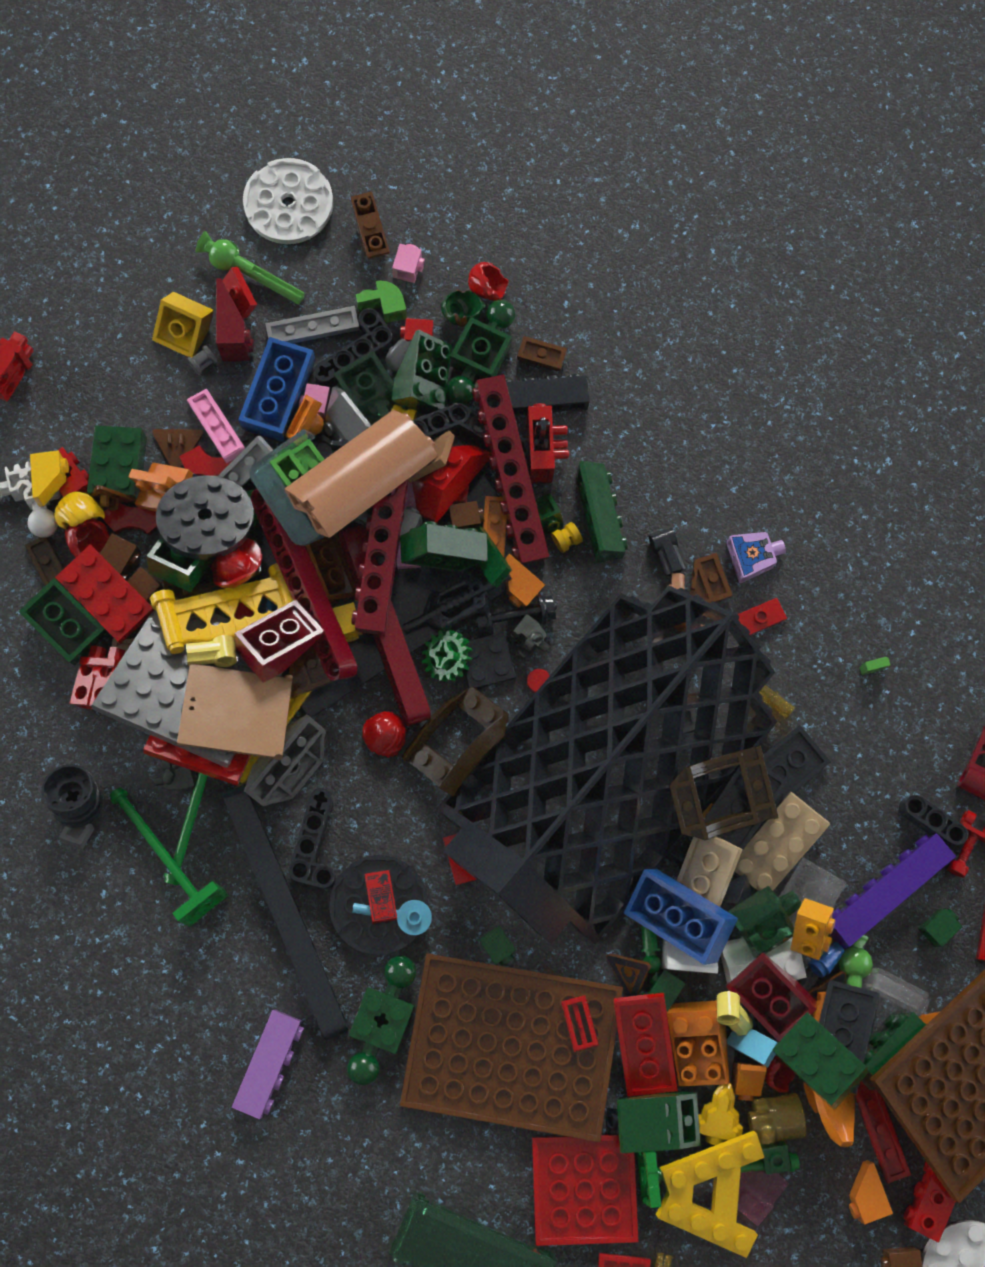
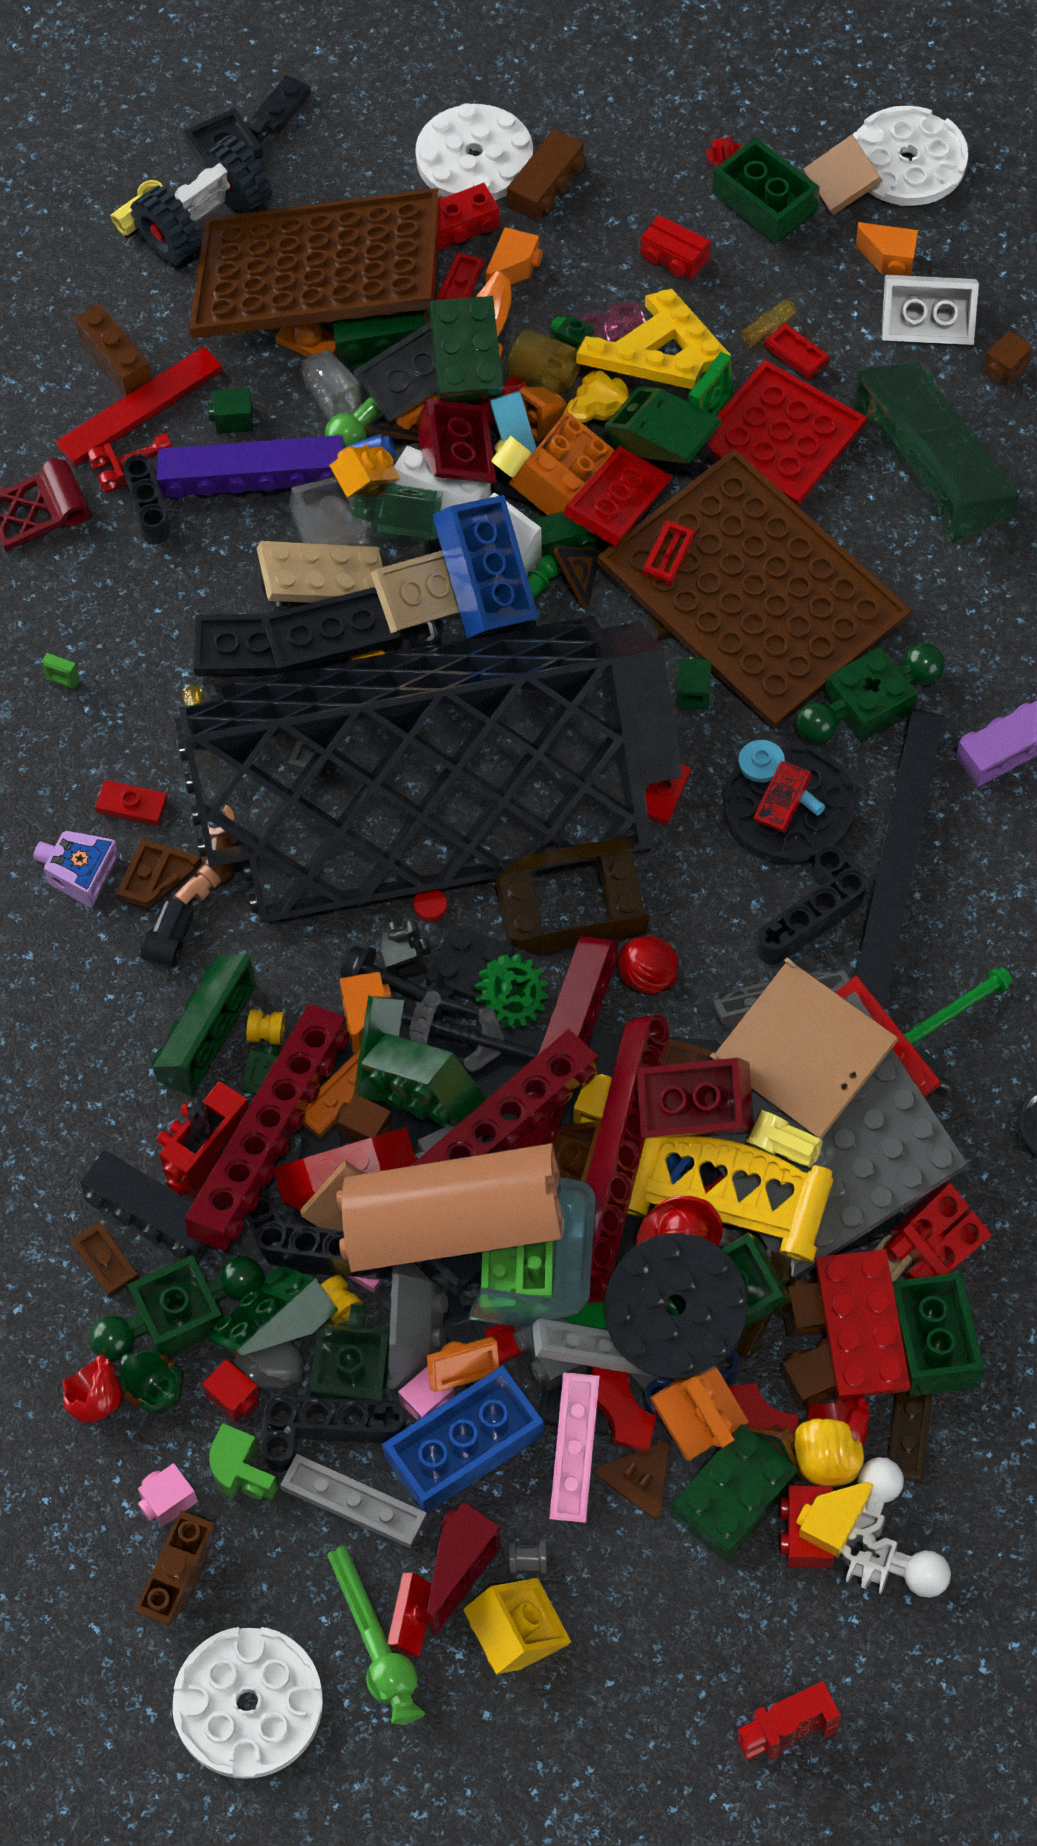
camera: 135 degrees left, 15 degrees down
(199, 902) = (987, 922): green tile -> none
(756, 787) = (390, 621): dark brown wedge -> none

